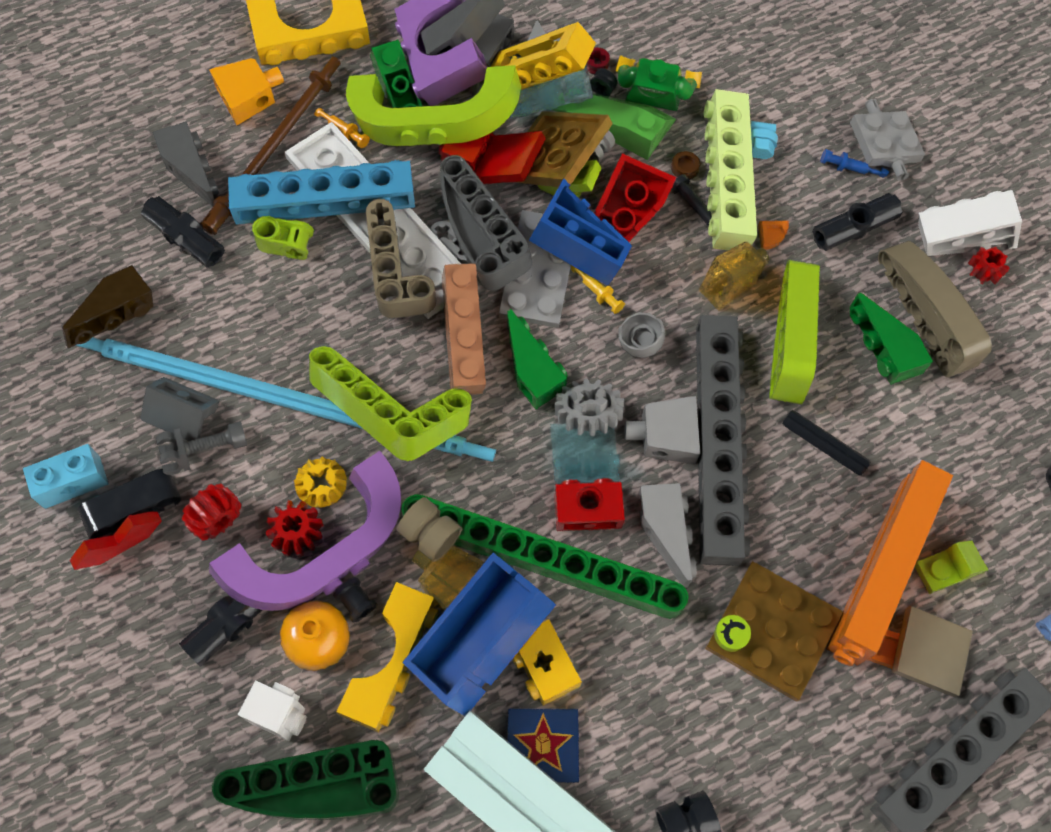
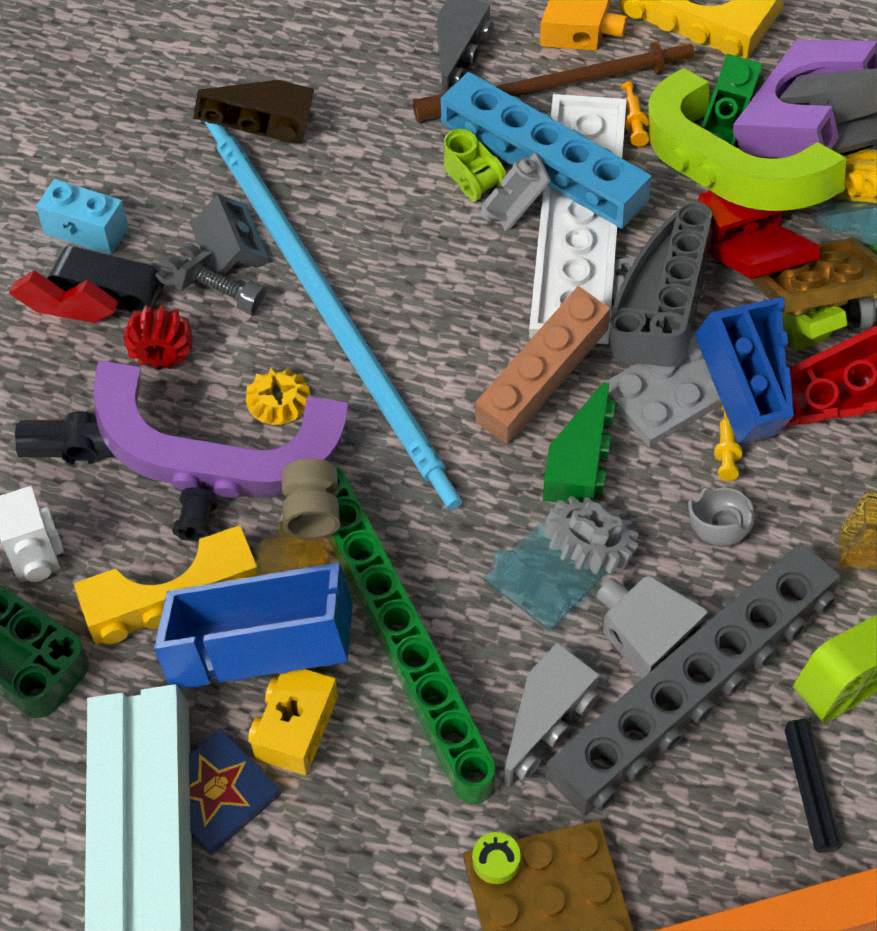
camera: 50 degrees right, 10 degrees down
(182, 231) = (390, 97): black piece -> none
(289, 539) = (211, 411): red gear -> none
(314, 635) = (131, 514): light orange cylinder -> none
(334, 233) = (521, 187): none -> light grey hinge
(389, 258) = (517, 274): dark tan beam -> none
(393, 426) = (384, 403): lime beam -> none
(574, 517) = (499, 644): red brick -> none

